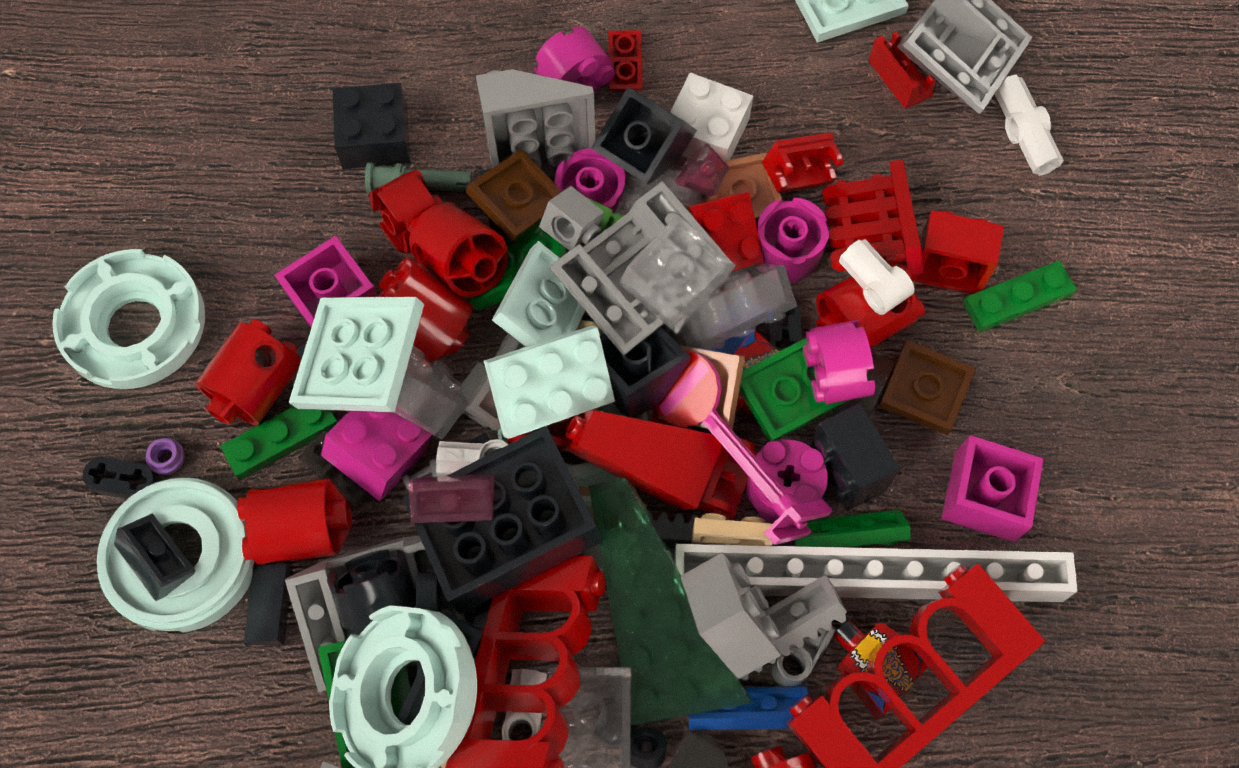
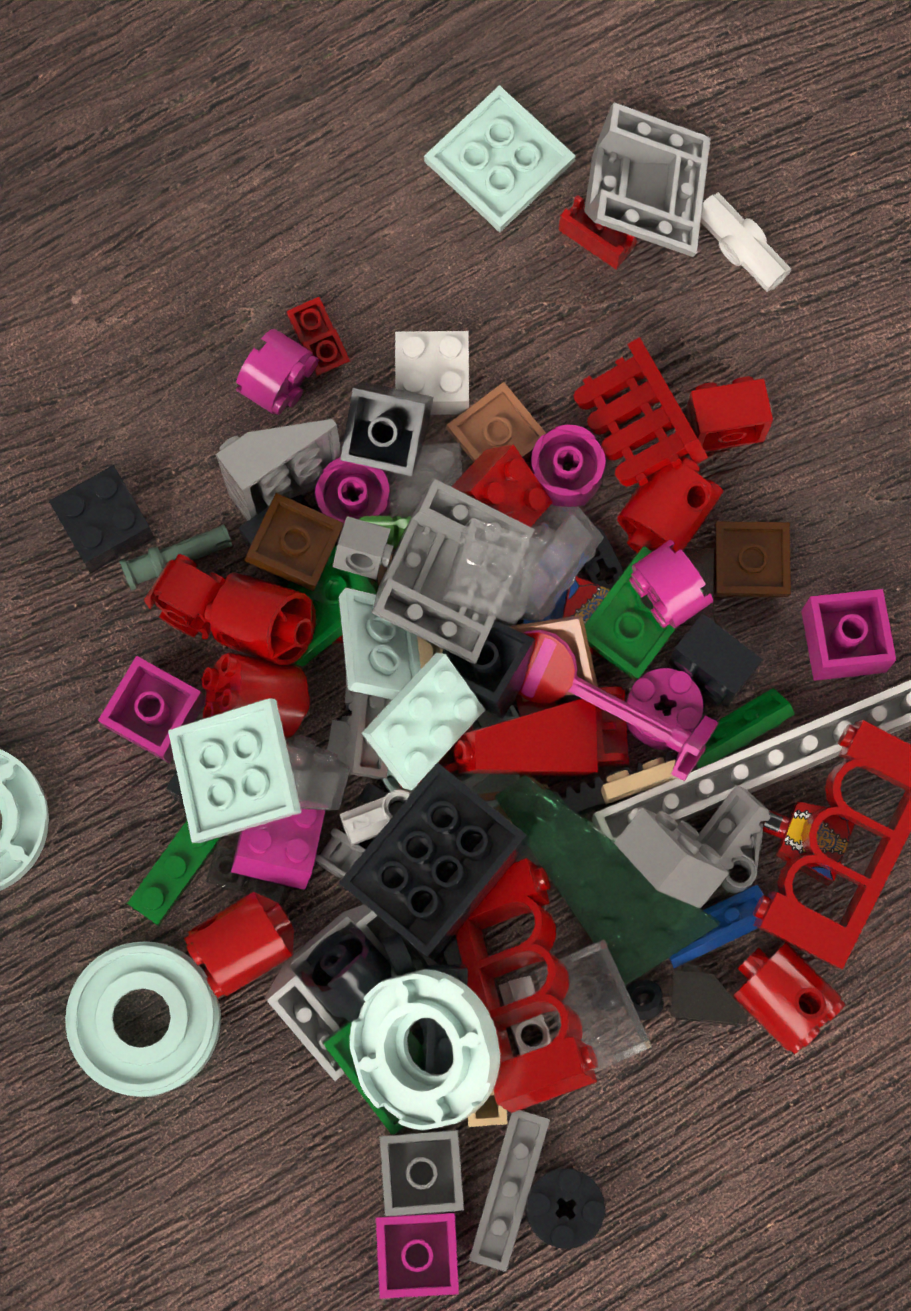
camera: 25 degrees left, 10 degrees up
(121, 471) = (47, 965): black beam -> none
(153, 556) = (129, 1031): black slope -> none
(158, 449) = (69, 930): medium lavender plate -> none
(239, 383) = (122, 826): red cylinder -> none
(268, 605) = (249, 1026): black slope -> none
(451, 498) = (385, 864): clear pink slope -> none
(703, 171) = (456, 436): clear pink slope -> none
(802, 162) = (545, 379): red hinge -> none
(881, 284) = (678, 491): white piece -> none
(1019, 296) = (801, 428): green plate -> none

